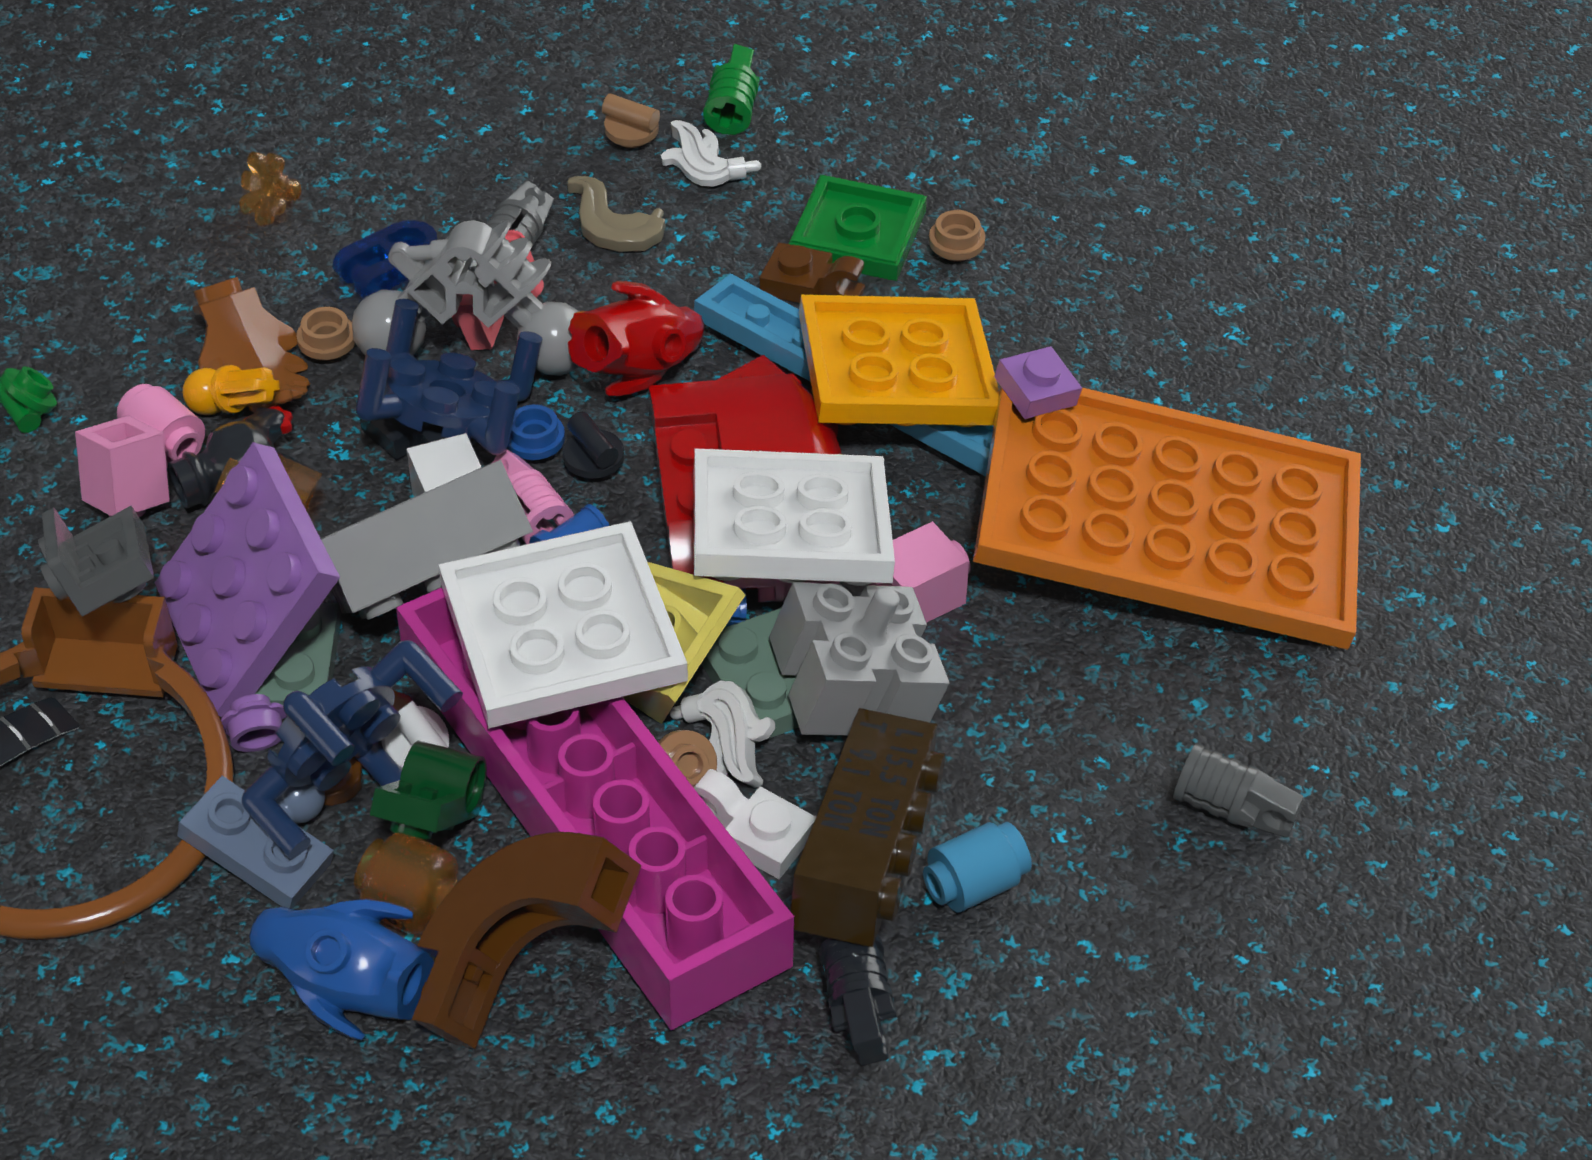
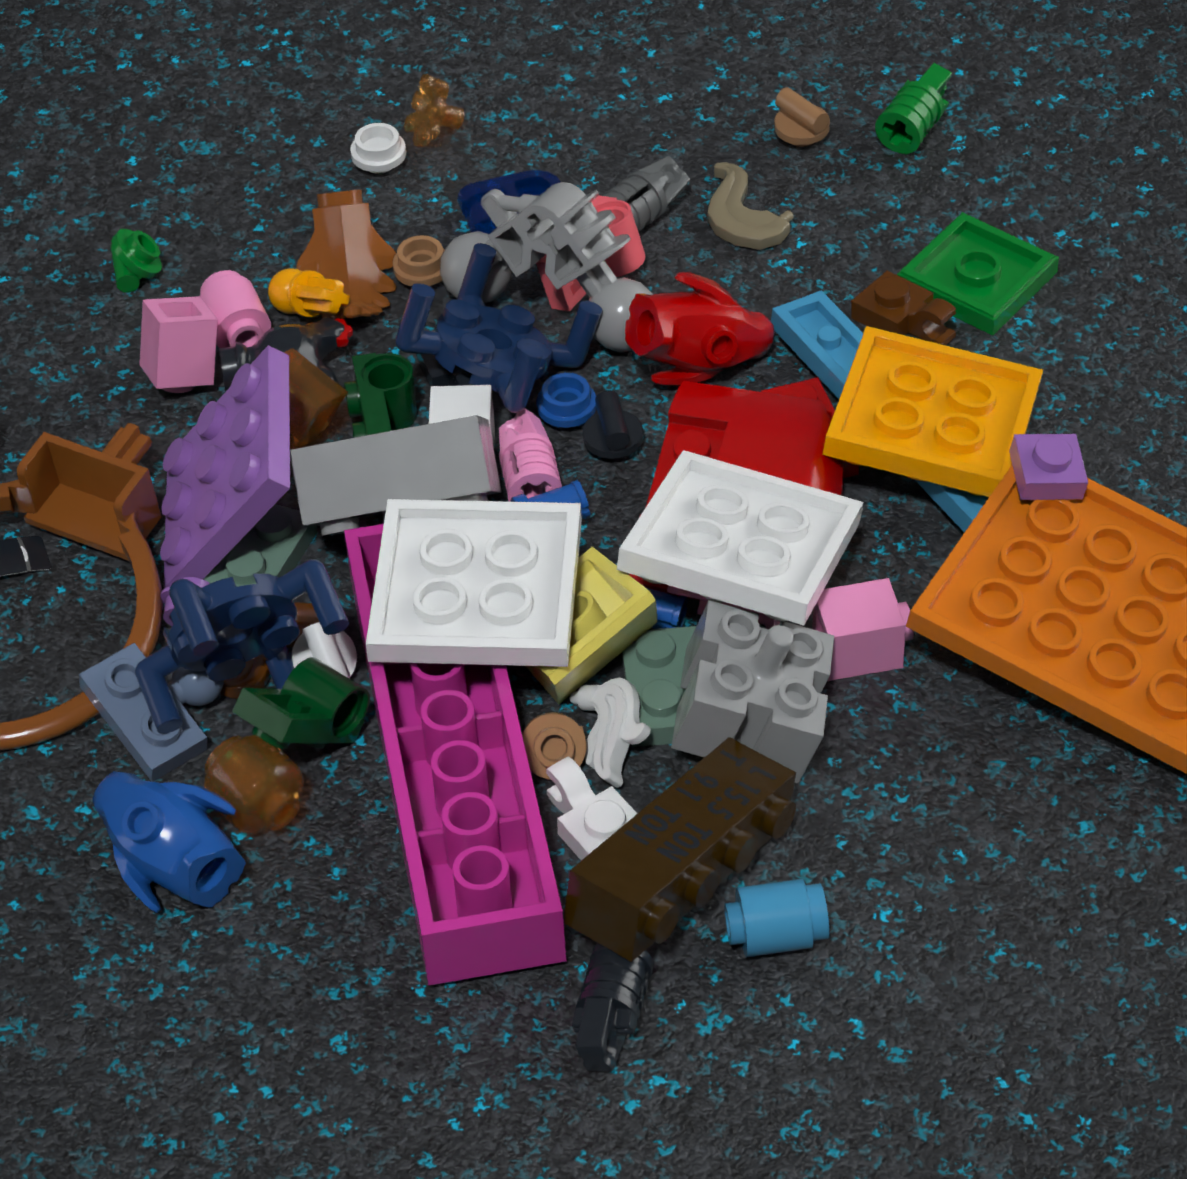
camera: 25 degrees right, 0 degrees up
(97, 564) = (95, 424): dark grey bracket -> none
(229, 234) = (378, 148): none -> white plate
(352, 472) = (381, 394): none -> dark green plate
(504, 906) = (302, 832): reddish brown arch -> none
(700, 158) = (855, 170): white piece -> none
(957, 236) = (1069, 304): medium nougat plate -> none
(1237, 792) = (1065, 913): dark grey hinge -> none

